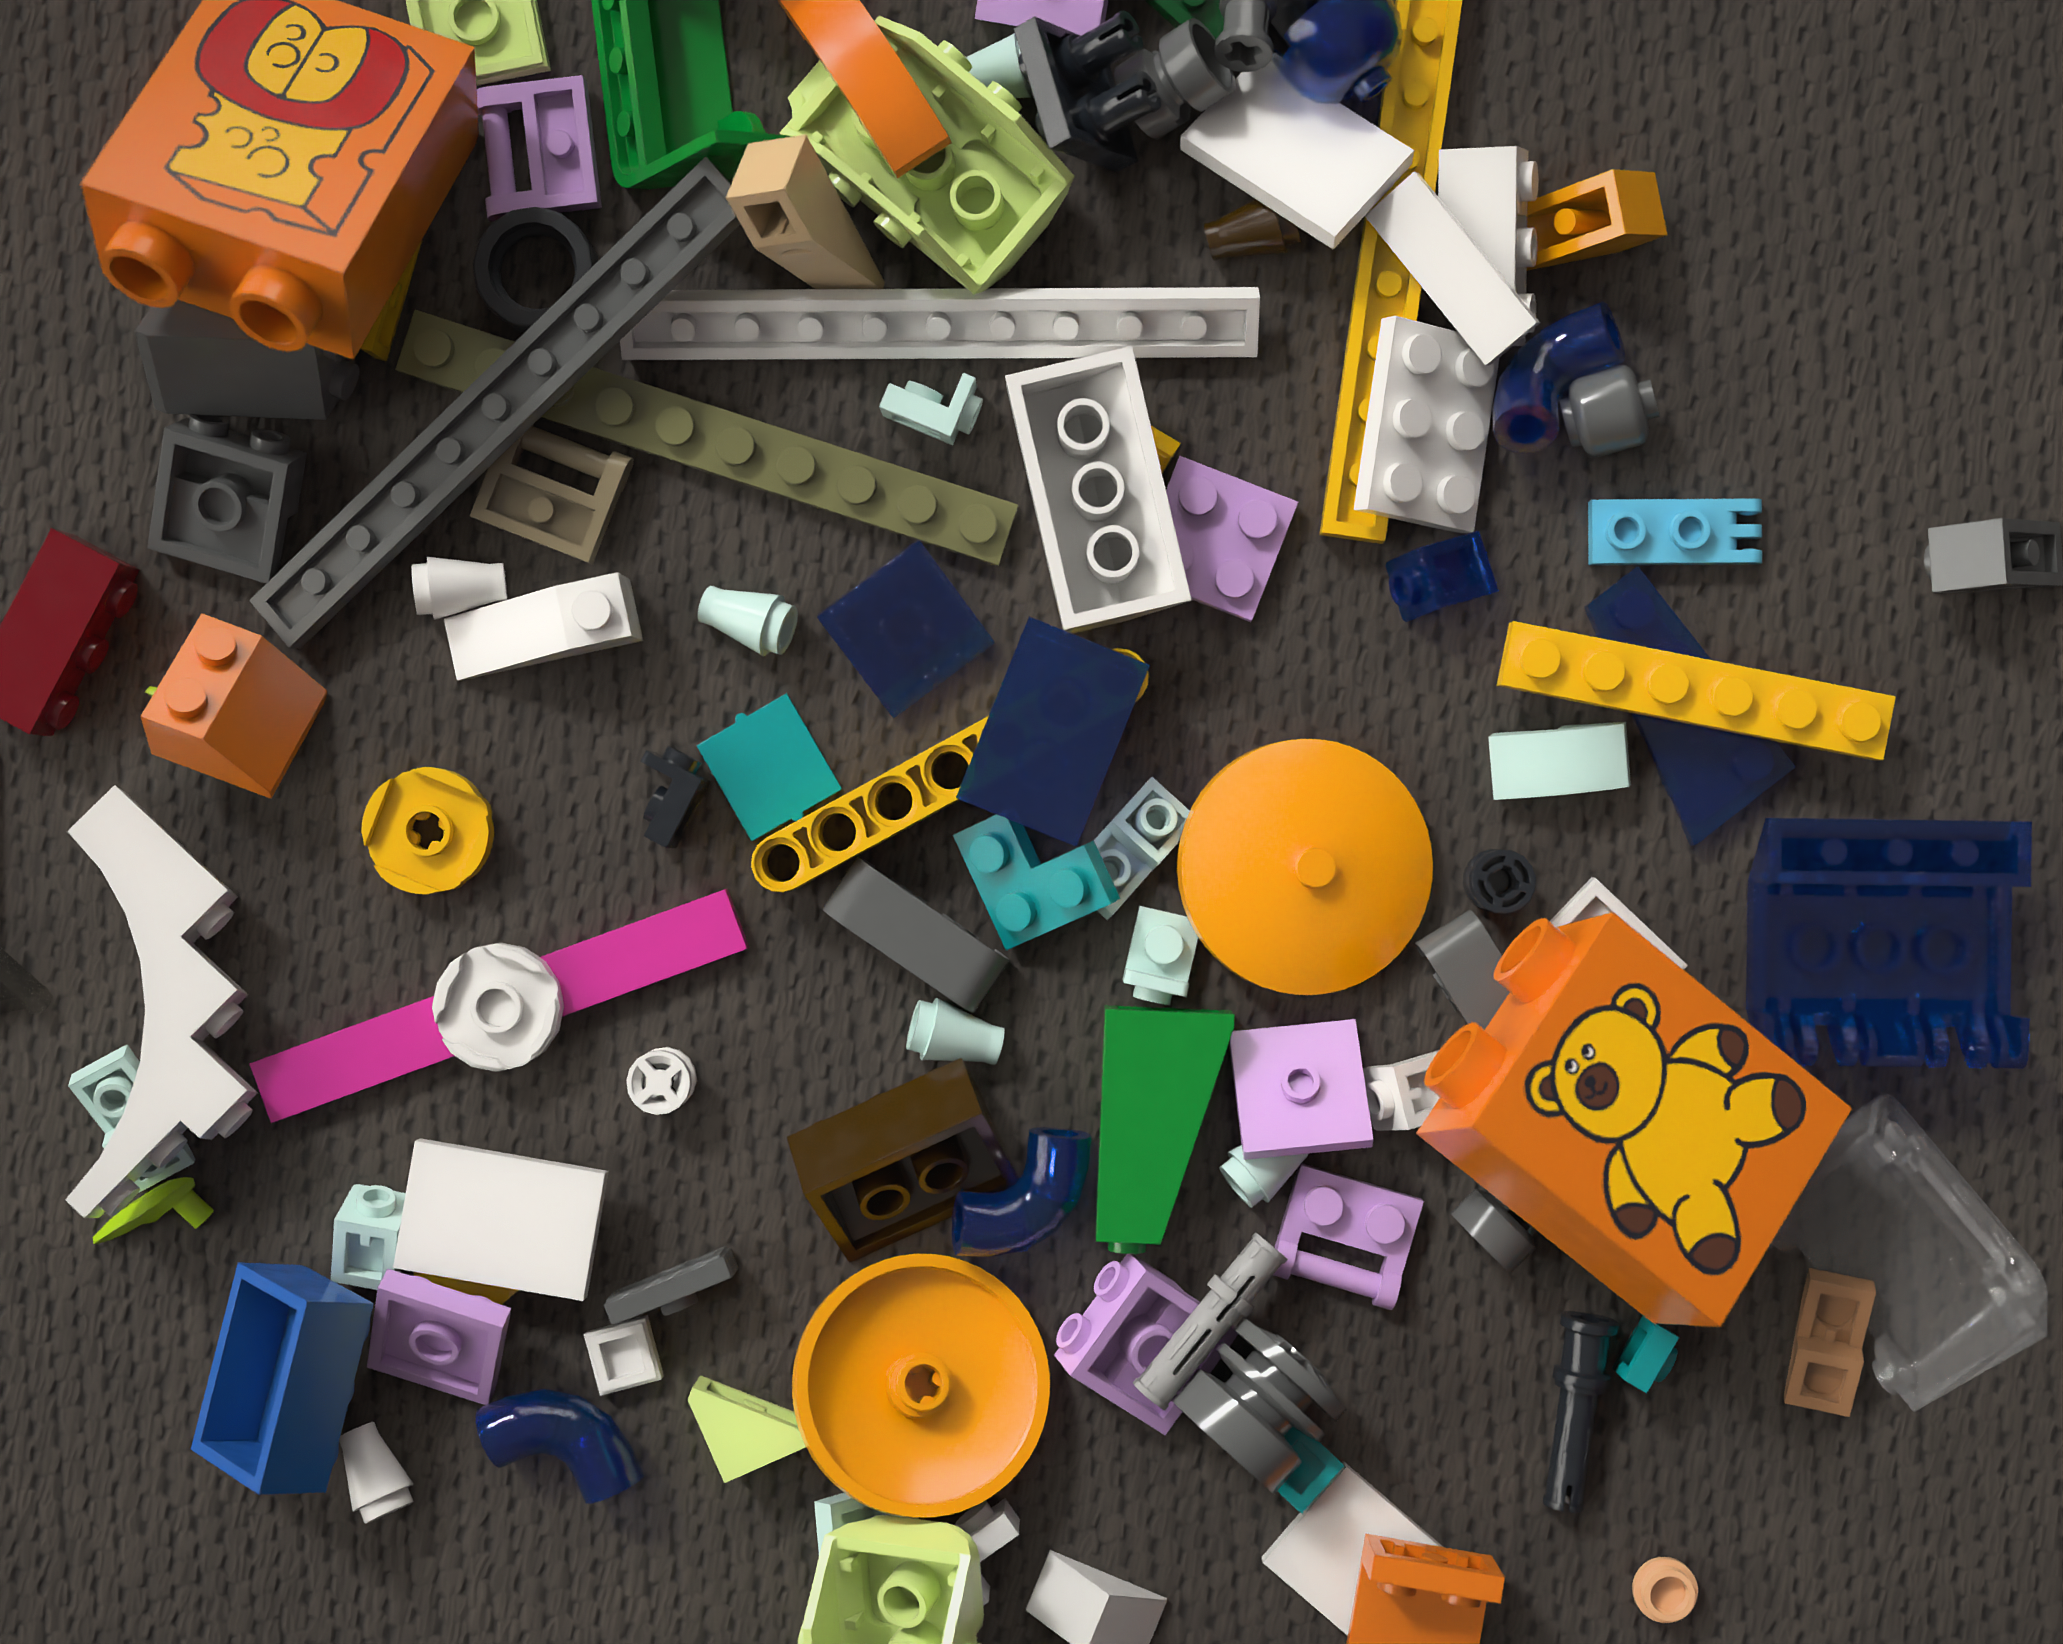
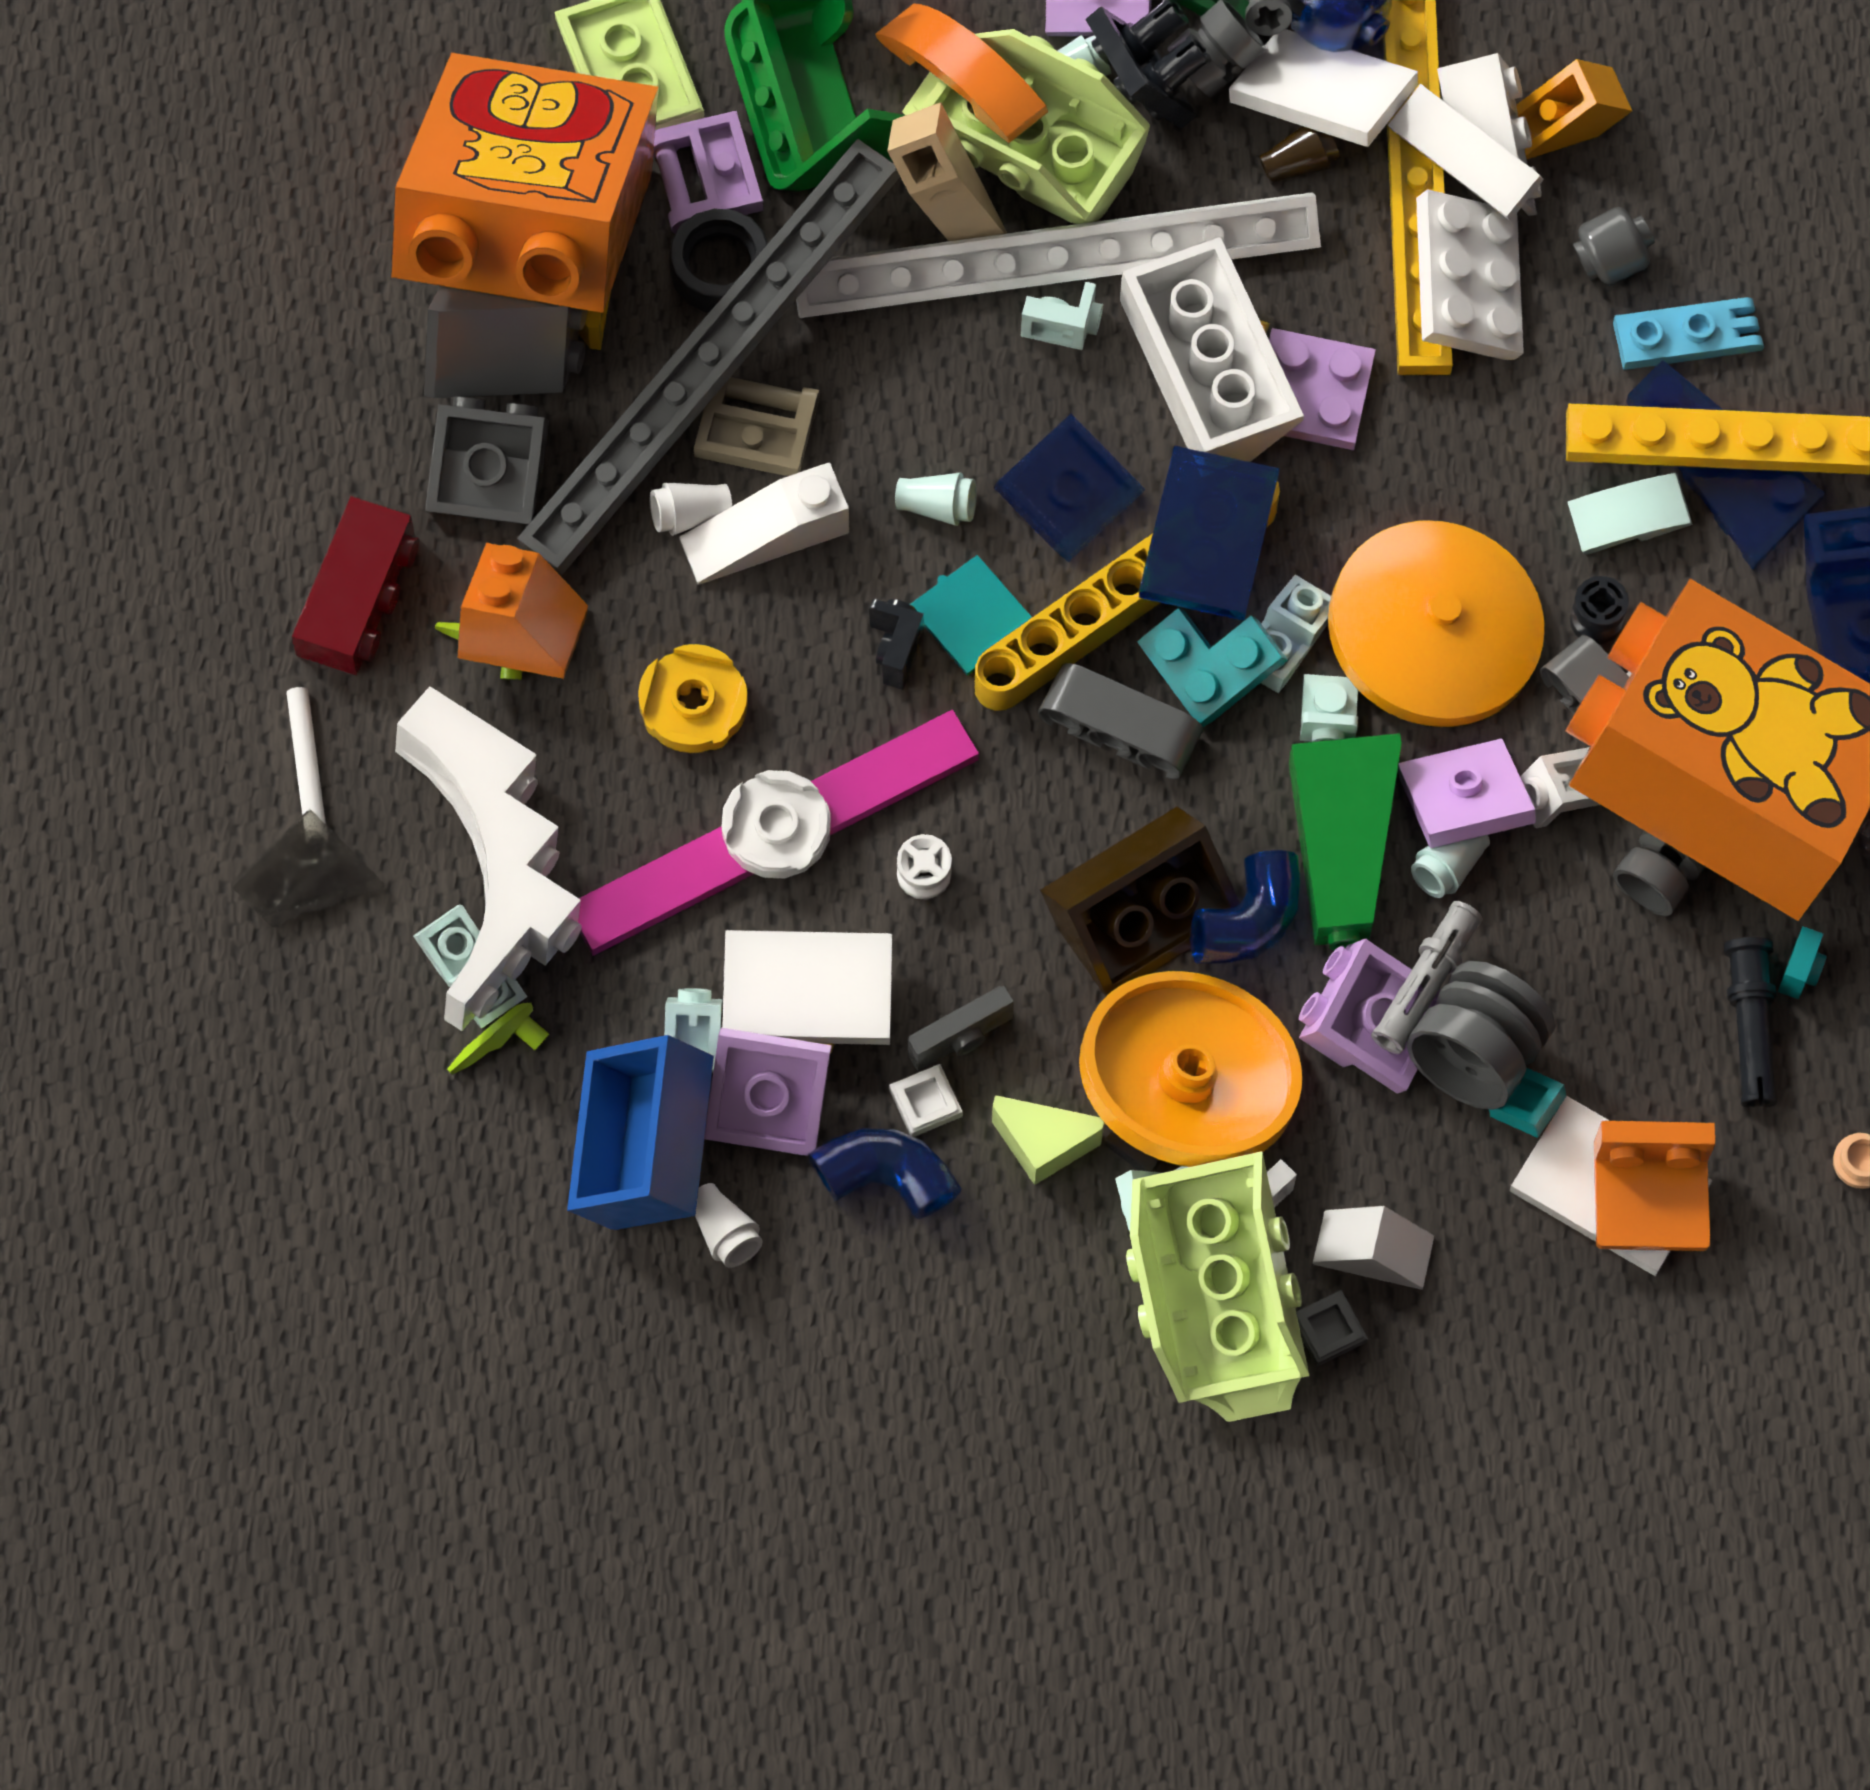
camera: 15 degrees left, 20 degrees down
(733, 446) = (901, 372): olive plate -> none
(950, 1033) = (1156, 792): light aqua cone -> none
(1351, 1215) = (1530, 896): lavender plate -> none
(1440, 576) = (1502, 387): clear blue bracket -> none
(1544, 369) = (1555, 222): clear blue cylinder -> none

